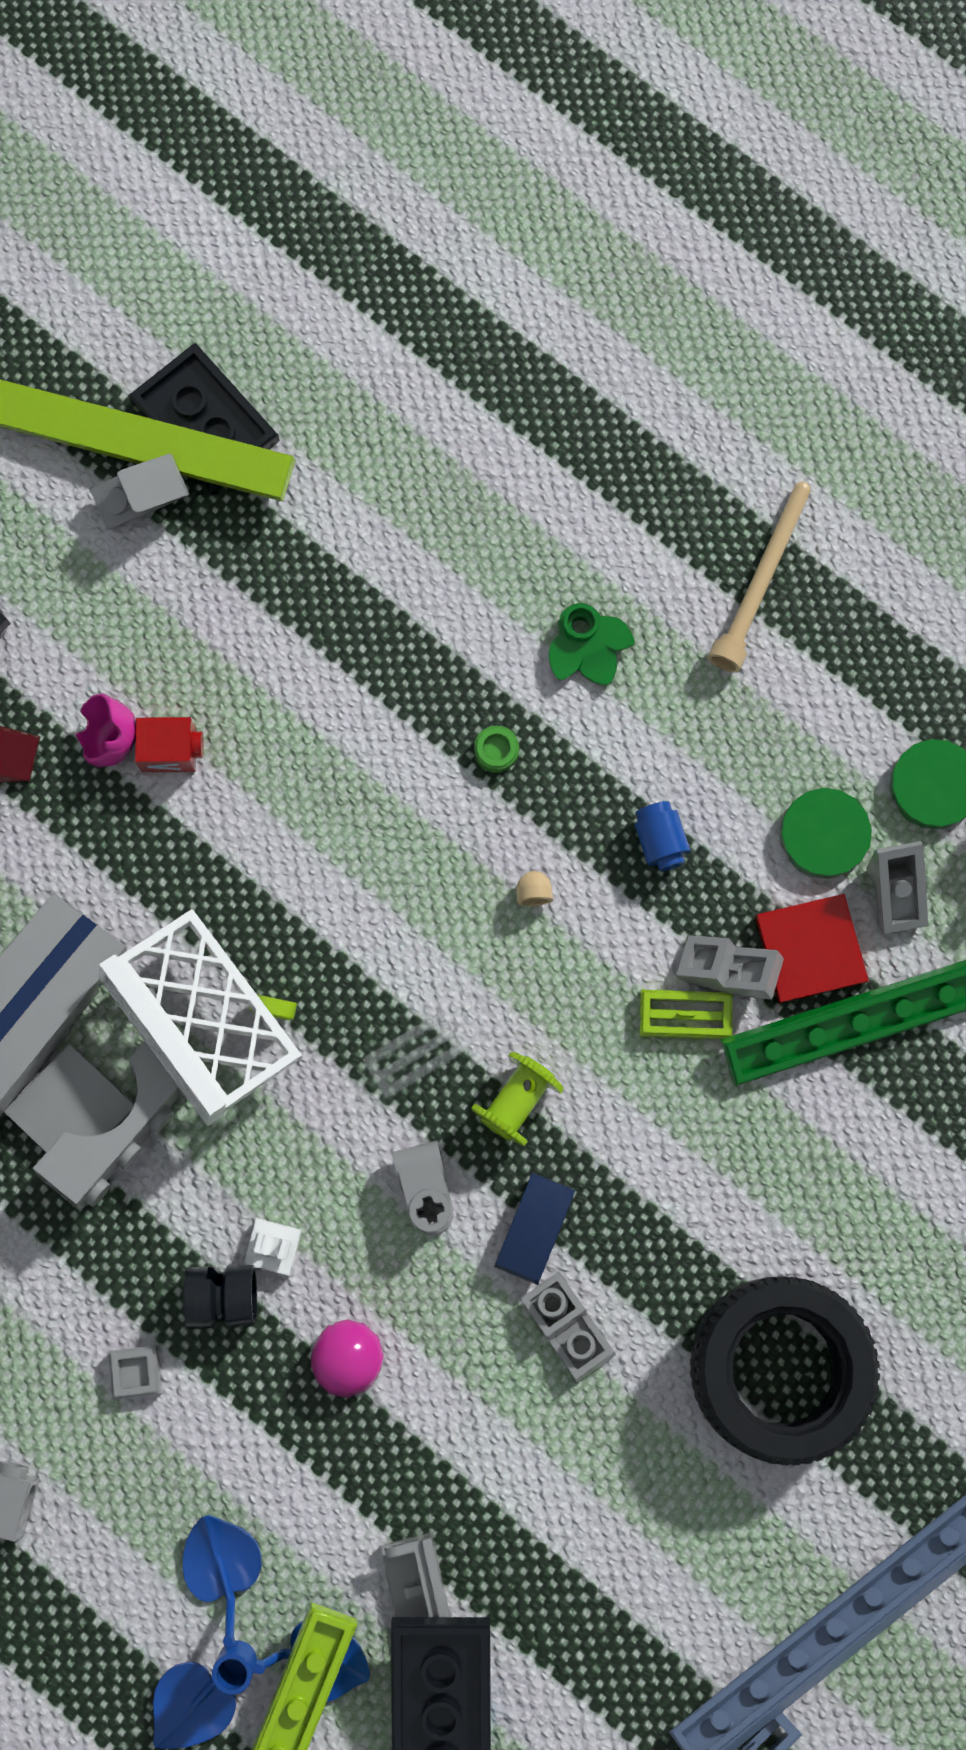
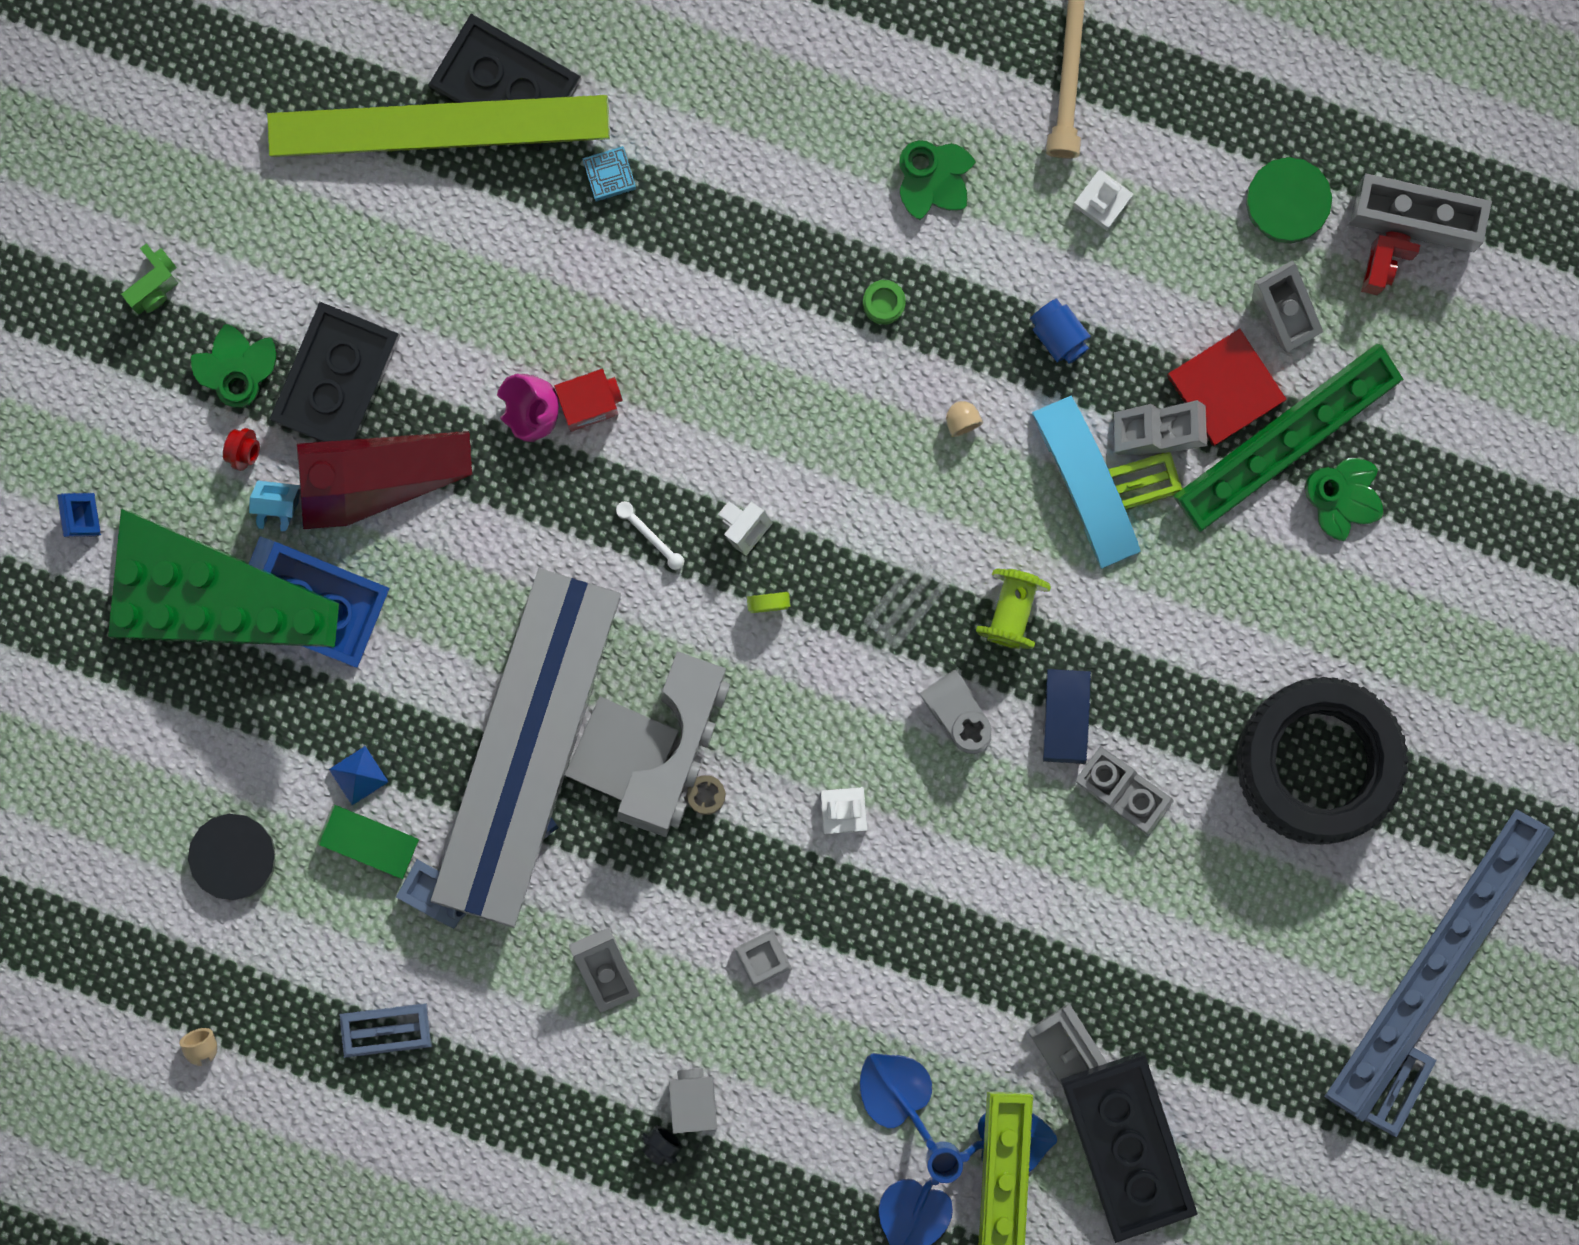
camera: 20 degrees left, 5 degrees up
(139, 491) = (475, 174): light grey slope -> none
(150, 1190) = (719, 797): none -> dark tan bush
(166, 868) = (625, 511): none -> white hinge
(166, 1040) = (682, 654): white fence -> none
(220, 1297) = (816, 867): black wheel -> none
(271, 536) = (609, 173): none -> medium azure tile
(278, 922) = (744, 525): none -> white tile
(346, 1358) = (942, 883): dark pink hair -> none
(638, 996) = (1087, 481): none -> medium azure slope
(749, 722) = (1103, 199): none -> white tile
(825, 833) = (1205, 278): green tile -> none
(902, 1103) = (1351, 496): none -> green plate

